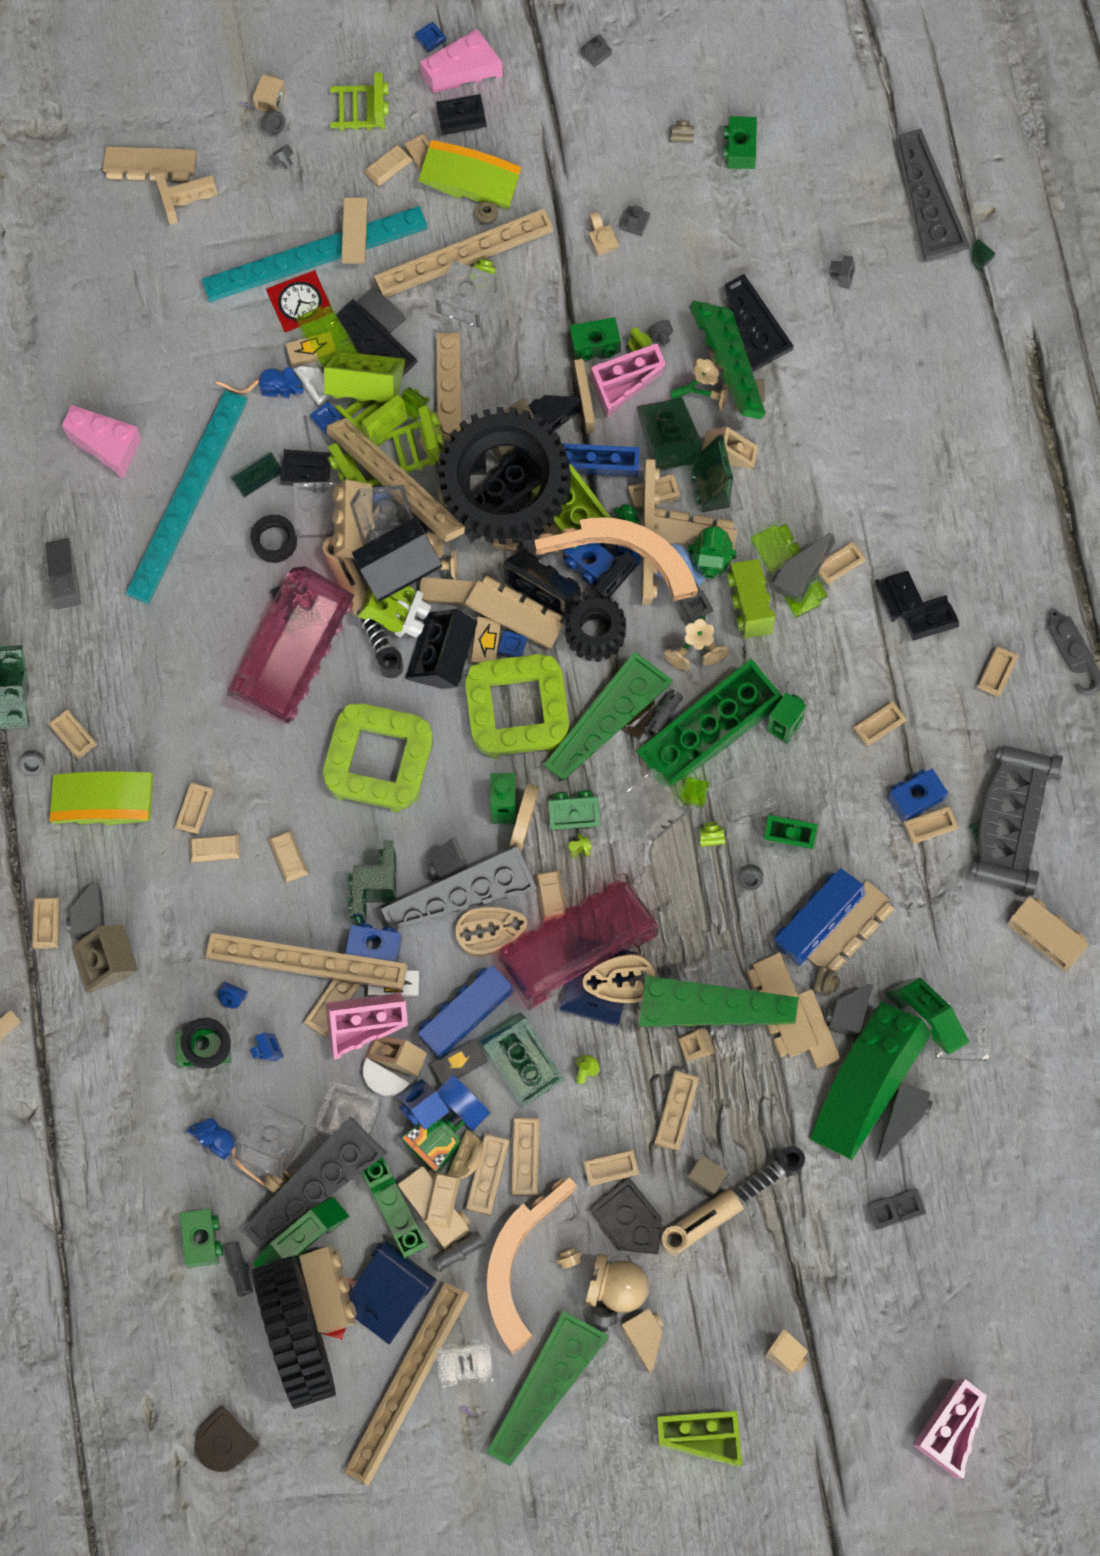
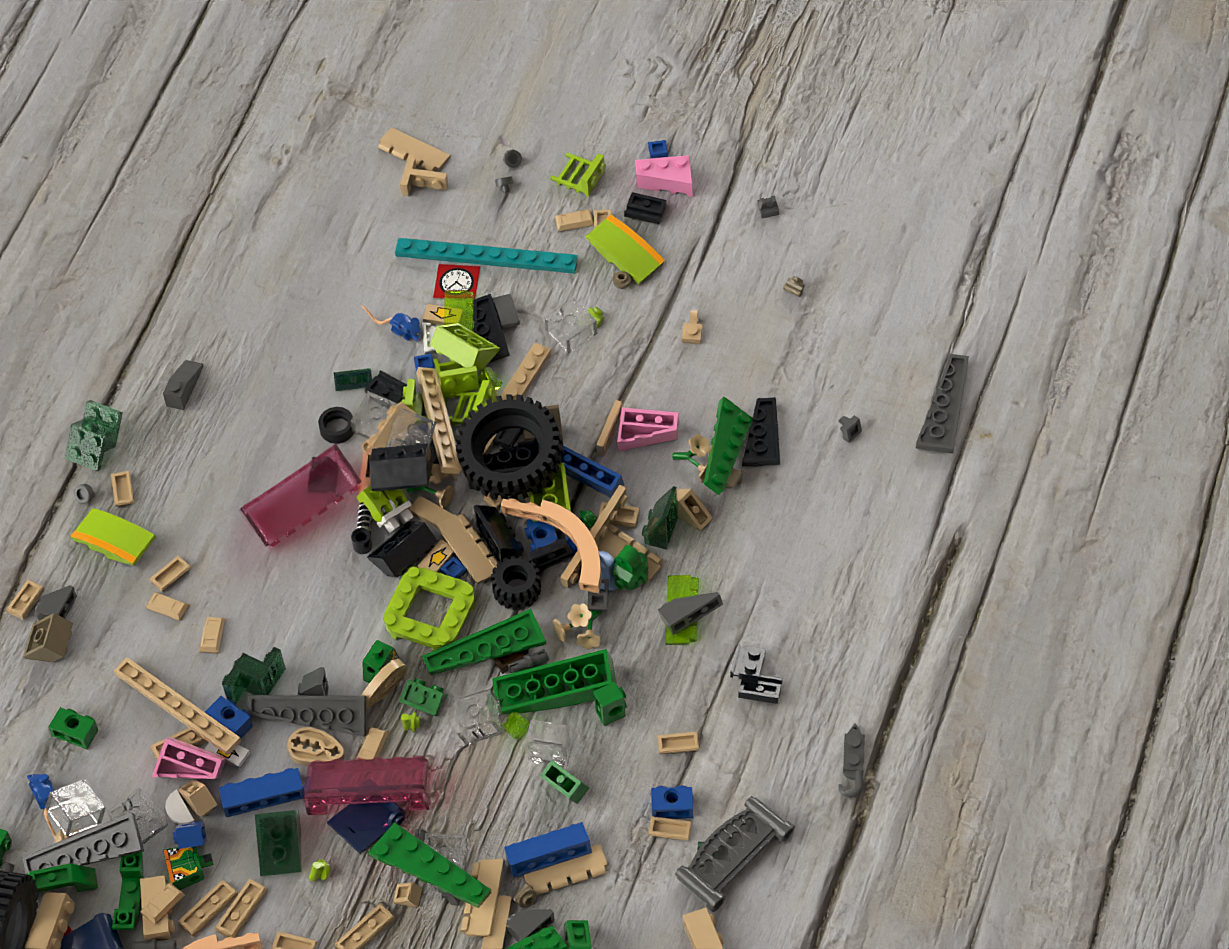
camera: 30 degrees right, 15 degrees down
(103, 437) = (266, 309): bright pink wedge -> none
(186, 497) = (297, 373): teal plate -> none
(205, 1023) = (68, 709): black tyre -> none
(231, 995) = (114, 705): blue plate -> none
(267, 1048) = (115, 749): blue tile -> none
(269, 93) = (521, 139): tan brick -> none
(354, 230) = (520, 250): tan tile -> none
(371, 790) = (303, 625): lime plate -> none
(459, 1062) = (235, 824): black tile -> none
(463, 1103) = (221, 851): blue slope -> none
(465, 252) = (588, 298): tan plate -> none
(468, 1156) = (201, 887): tan tile -> none
(555, 409) = (580, 429): black slope -> none
(603, 330) = (635, 387): green brick -> none
(608, 970) = (381, 810): tan piece -> none
(635, 220) = (723, 330): dark grey tile -> none
(638, 340) = (673, 407): lime plate -> none
(661, 331) = (692, 409): dark grey tile -> none
(669, 433) = (652, 478): clear green slope -> none
(711, 834) = (509, 759): lime plate -> none
(743, 130) = (831, 310): green brick -> none
(750, 877) = (517, 800): dark grey tile -> none
(751, 598) = (638, 615): lime wedge -> none
(841, 562) = (720, 621): tan tile -> none
(981, 255) = (960, 462): clear green tile -> none
(998, 671) = (787, 748): tan tile -> none

